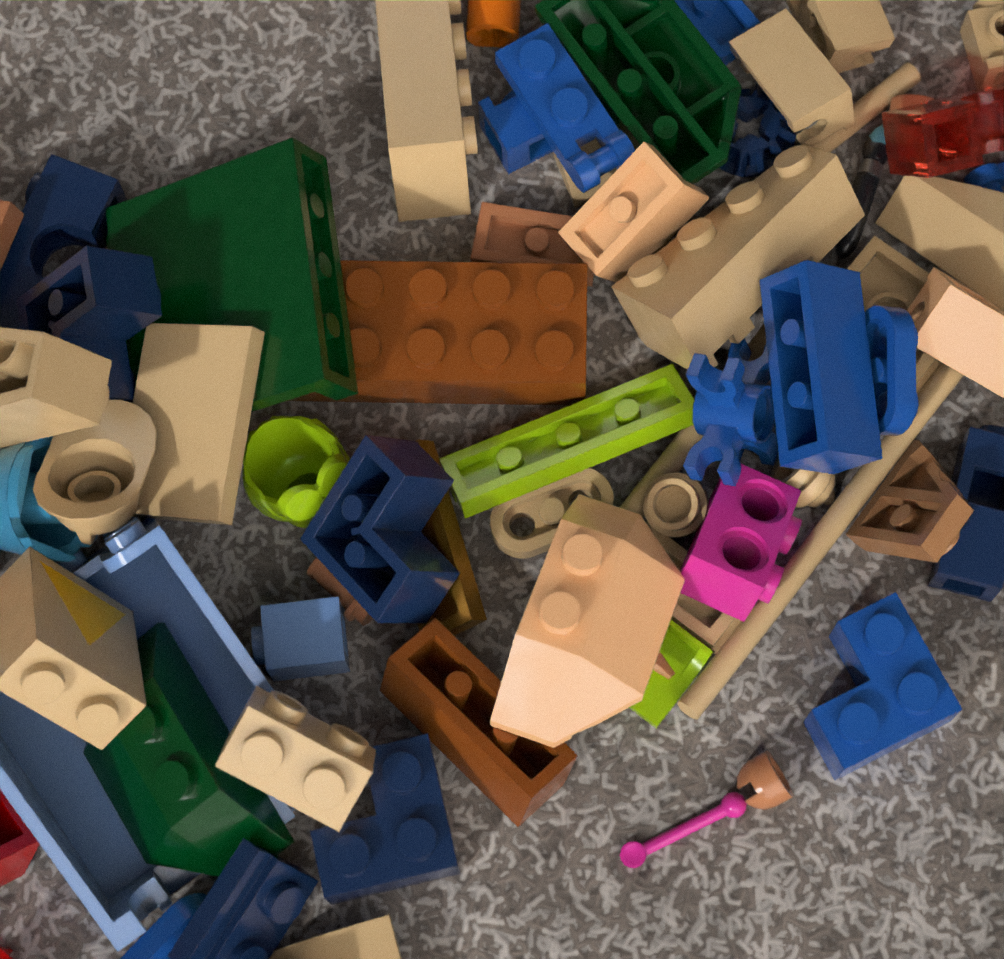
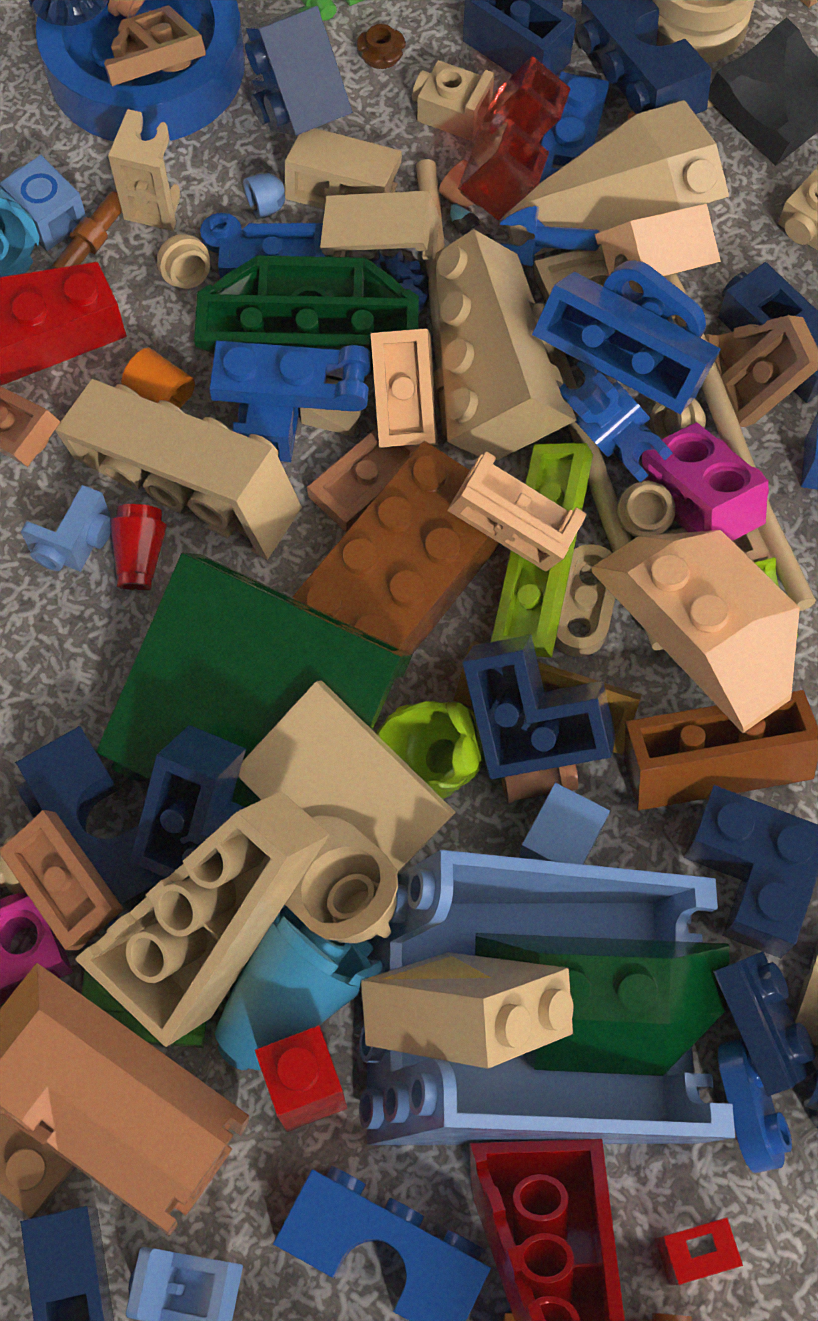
camera: 60 degrees left, 5 degrees down
(298, 757) = (686, 881): tan brick -> none
(300, 52) = (81, 530): none -> medium blue bracket
(325, 106) = (137, 544): none -> red cone
(563, 385) = (515, 514): none -> light nougat hinge
(905, 224) = (547, 236): none -> blue bar

